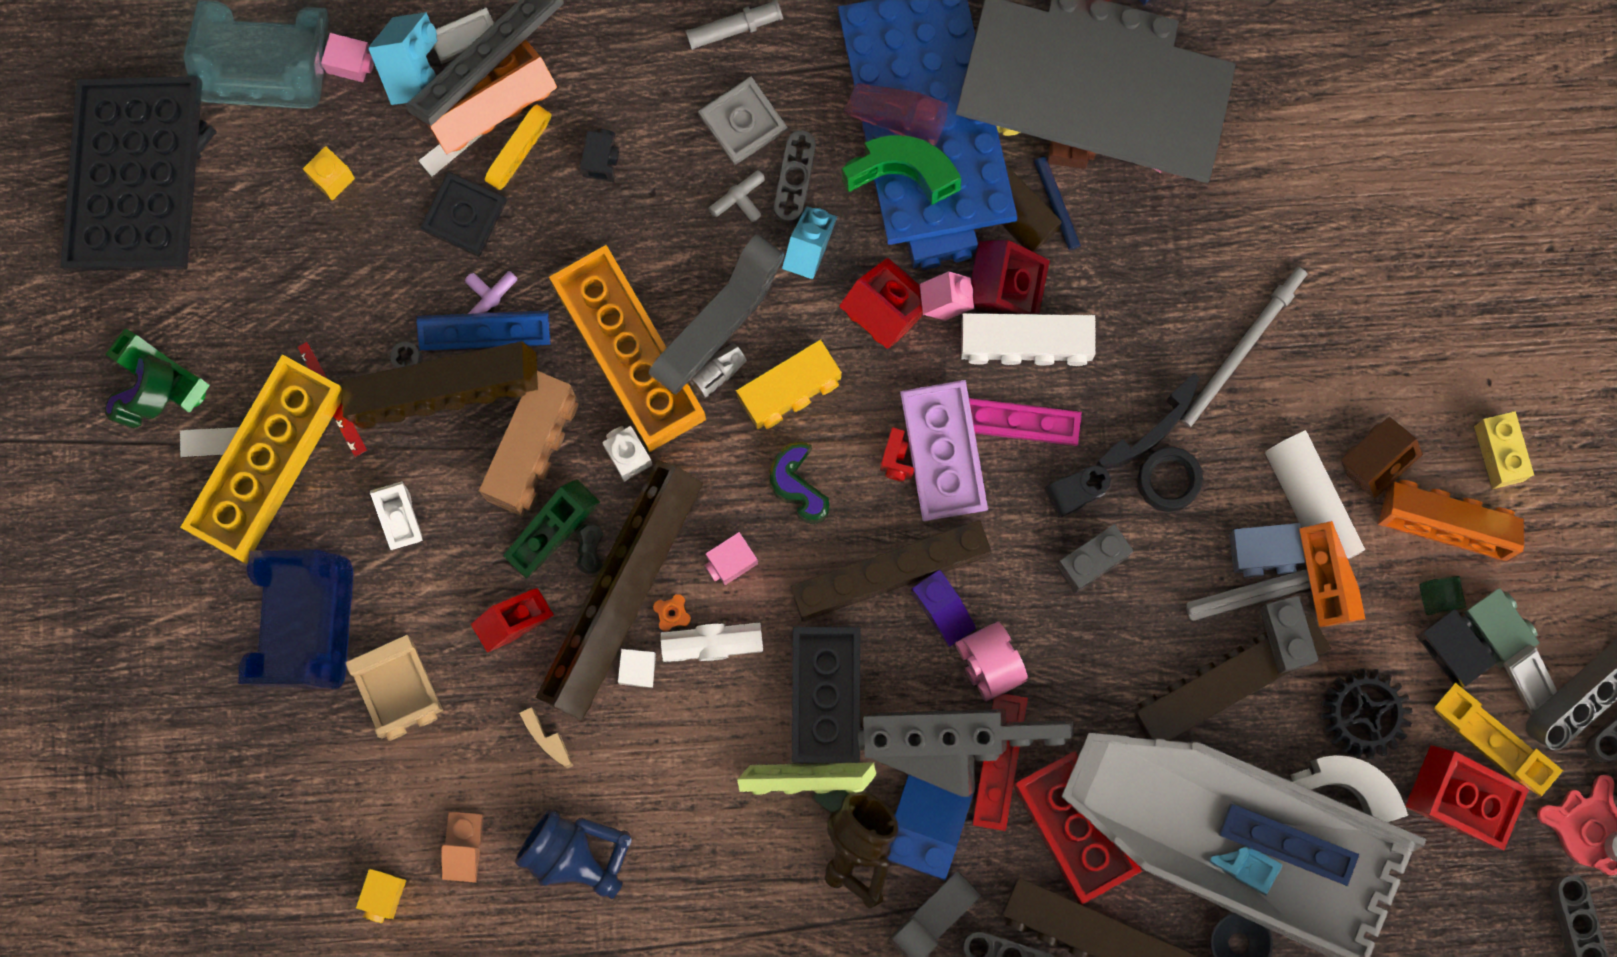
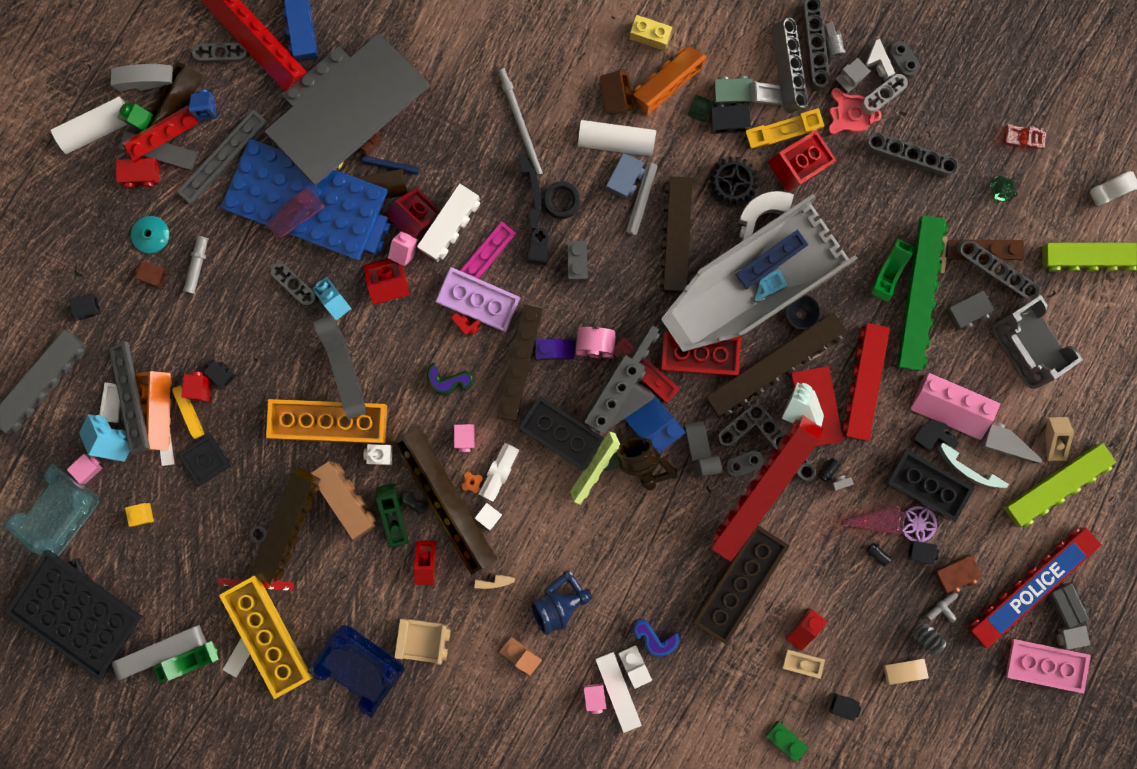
camera: 60 degrees left, 5 degrees up
(146, 396) = (196, 677): dark green animal -> none
(149, 324) = (158, 652): none -> light grey beam
(380, 895) = (519, 710): yellow brick -> none
(396, 515) = (337, 587): white slope -> none
(483, 330) = (270, 487): blue tile -> none
(489, 296) = (255, 473): lavender piece -> none
(560, 135) = (196, 387): none -> red brick
(717, 370) = (366, 383): light grey hinge -> none
(737, 195) = (284, 318): light grey piece -> none
(742, 120) = (247, 292): light grey tile -> none
(789, 385) = (397, 353): yellow brick -> none
(905, 157) = (323, 221): green arch -> none
(1289, 634) = (674, 193): dark grey brick -> none
(1330, 576) = (658, 155): orange slope -> none

